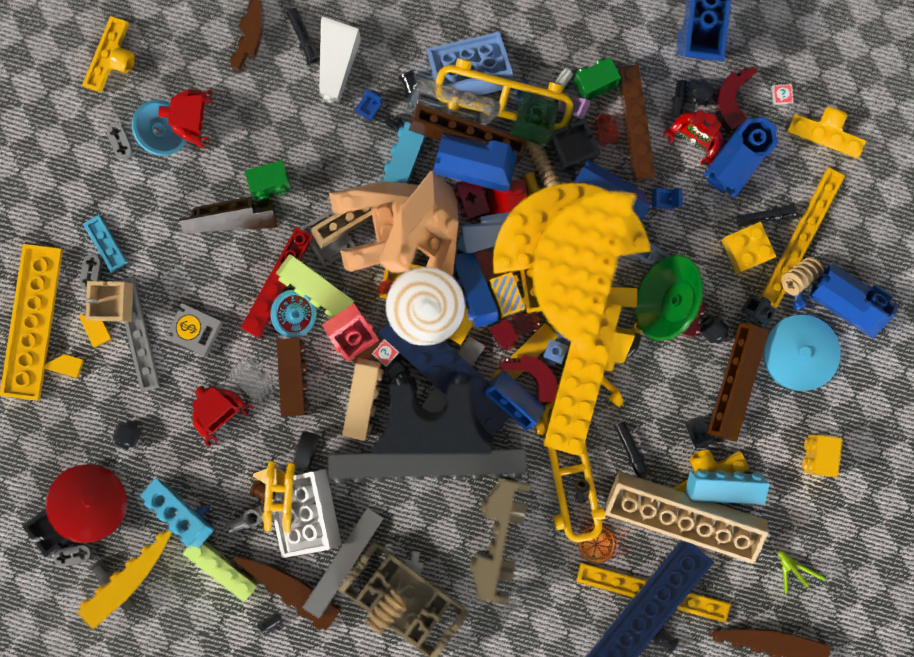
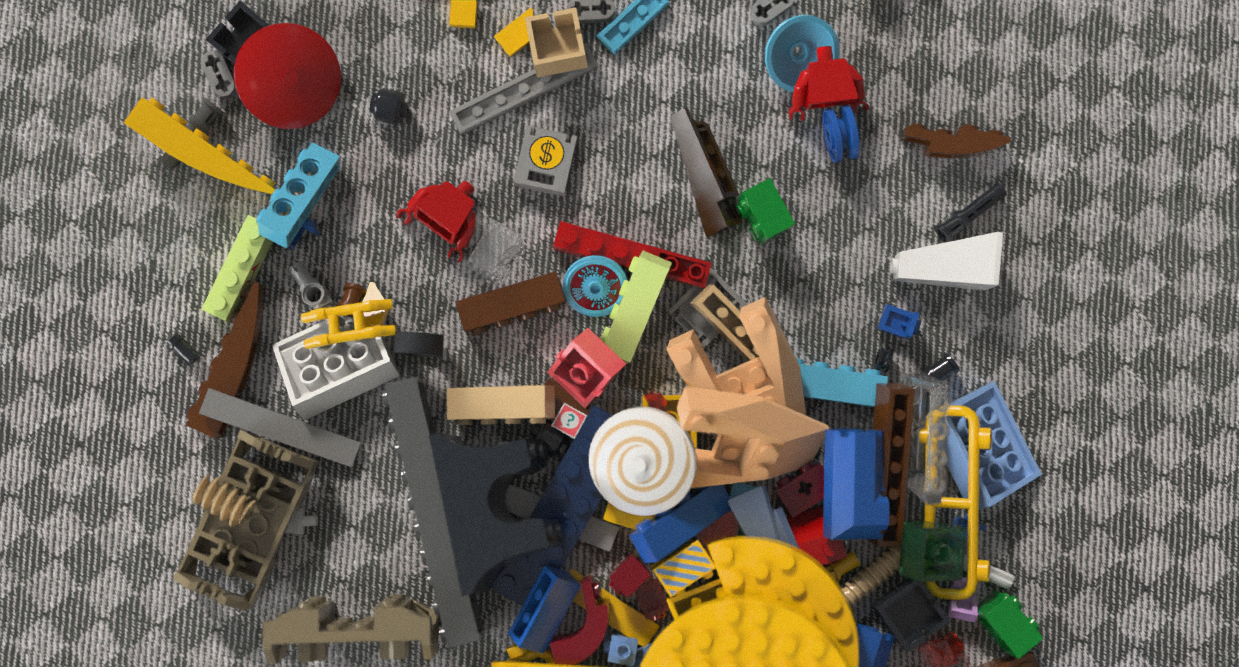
camera: 75 degrees right, 0 degrees up
(224, 113) = (841, 133): none -> blue wheel

